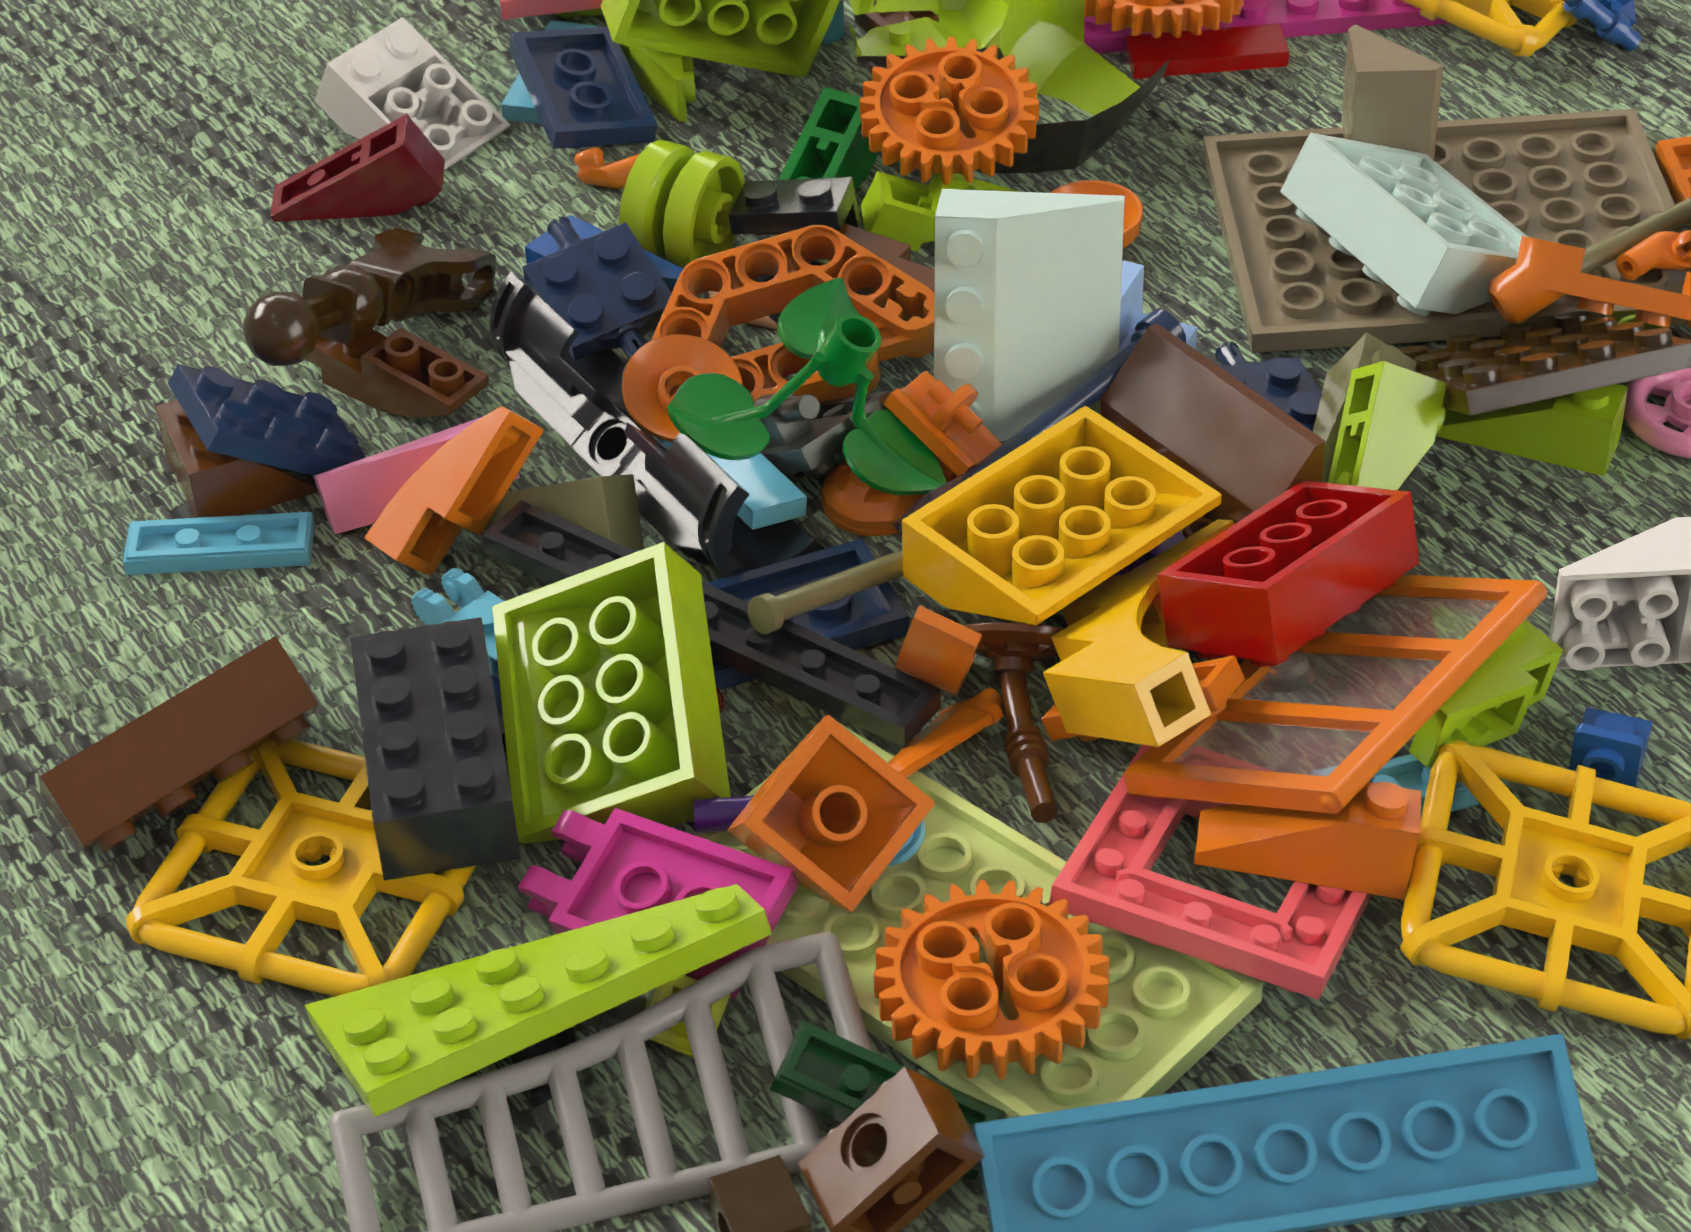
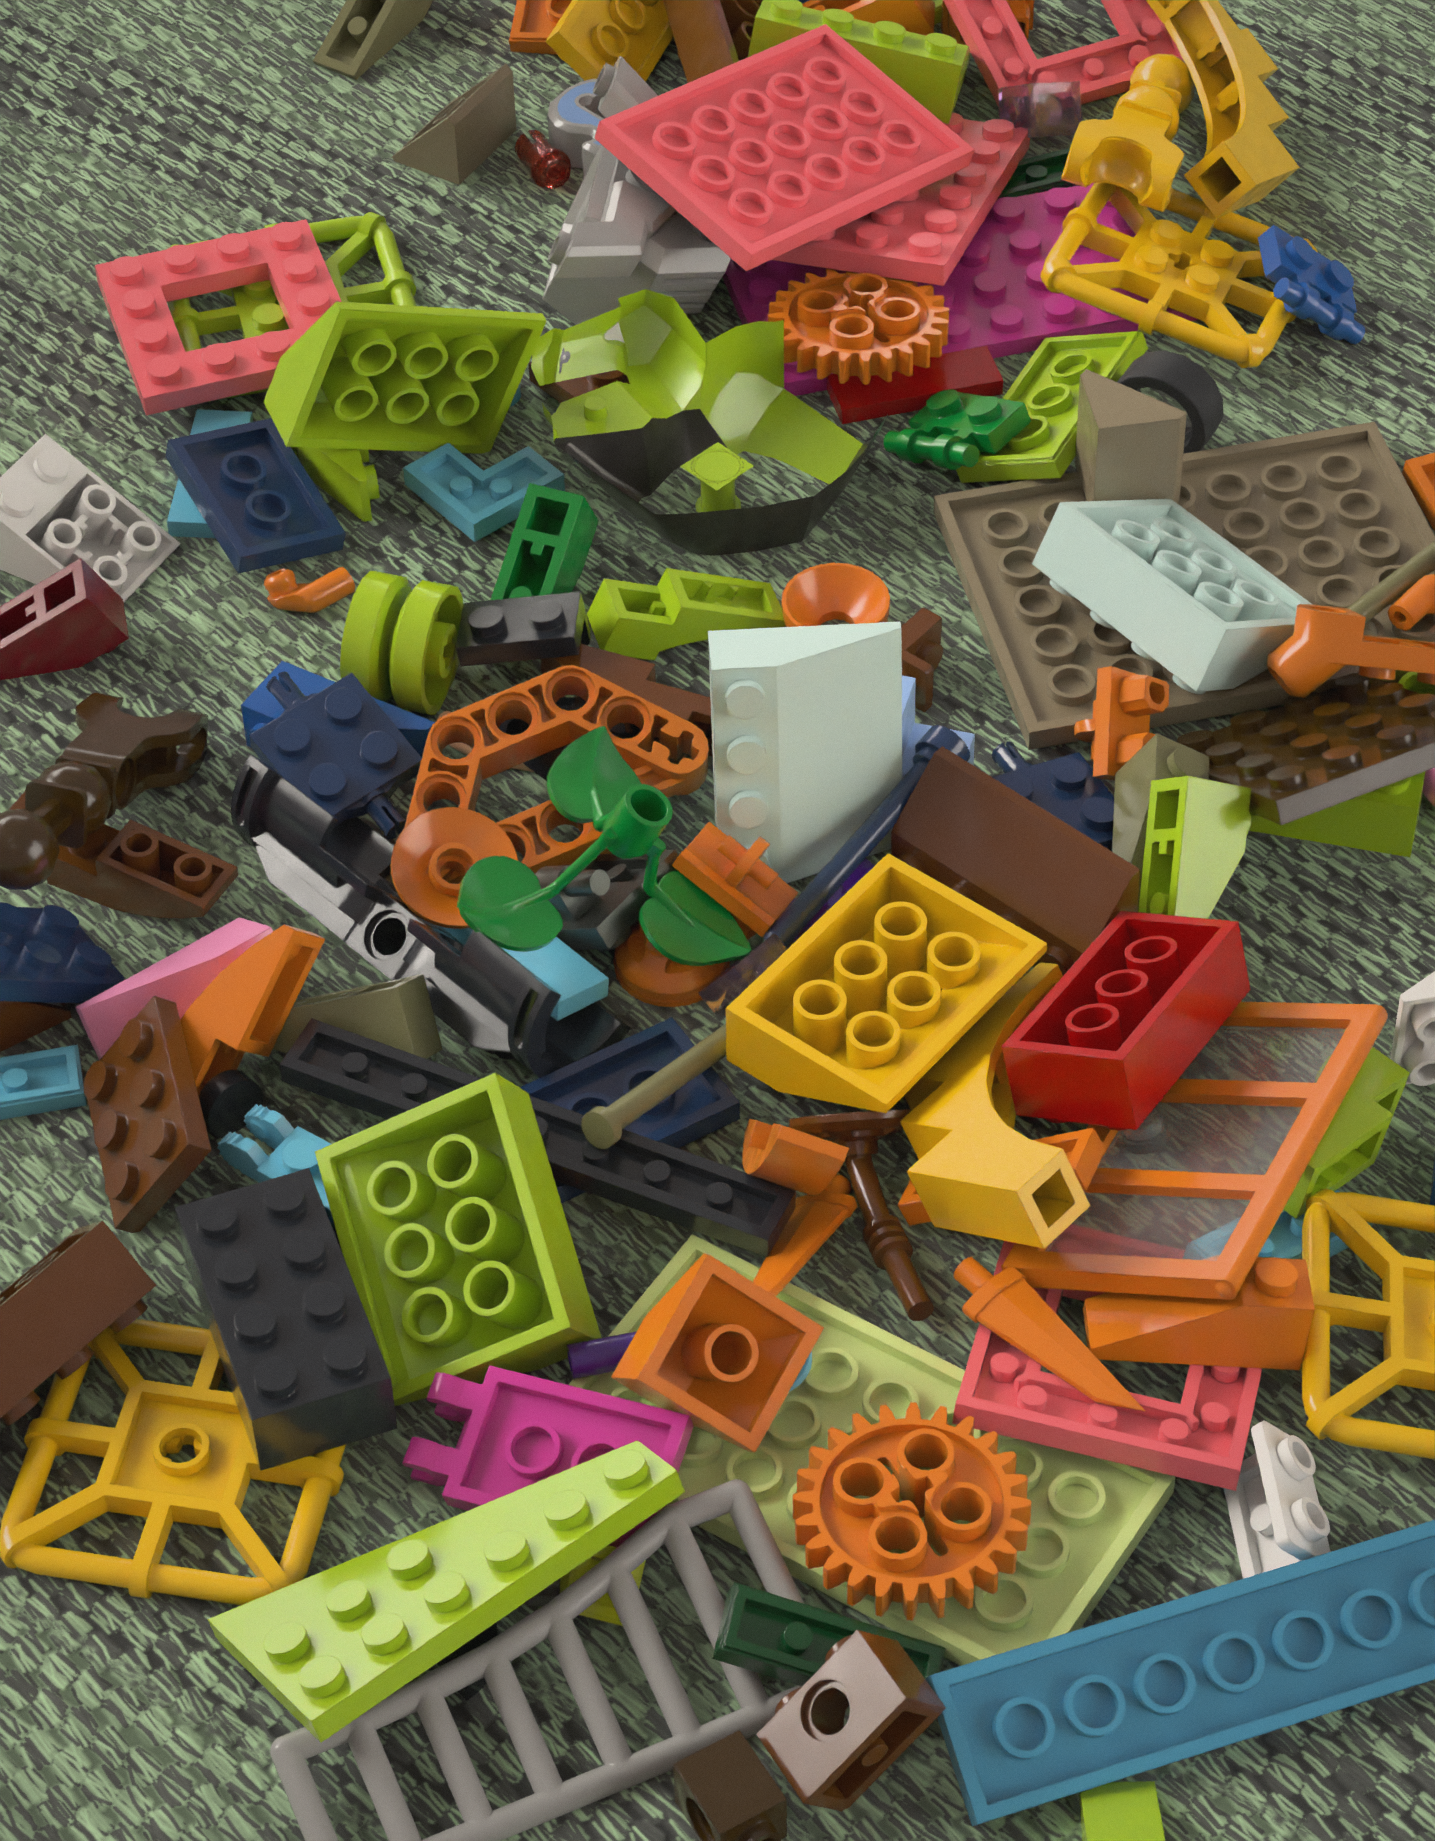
camera: 10 degrees left, 5 degrees up
(352, 568) = (146, 1115): none -> reddish brown plate
(429, 563) = (227, 1100): none -> black tile
(775, 103) = (475, 498): none -> medium azure plate
(949, 110) = (665, 487): orange gear -> none
(1137, 822) = (1028, 1323): none -> orange bar
(1163, 261) = (922, 653): none -> reddish brown bracket
(1236, 84) = (956, 428): none -> green plate
(1311, 86) = (1051, 397): none -> lime tile
(1340, 321) = (1121, 718): none -> orange hips
(1358, 1009) = (1276, 1504): none -> white bracket
(1460, 61) = (1187, 384): none -> black tyre

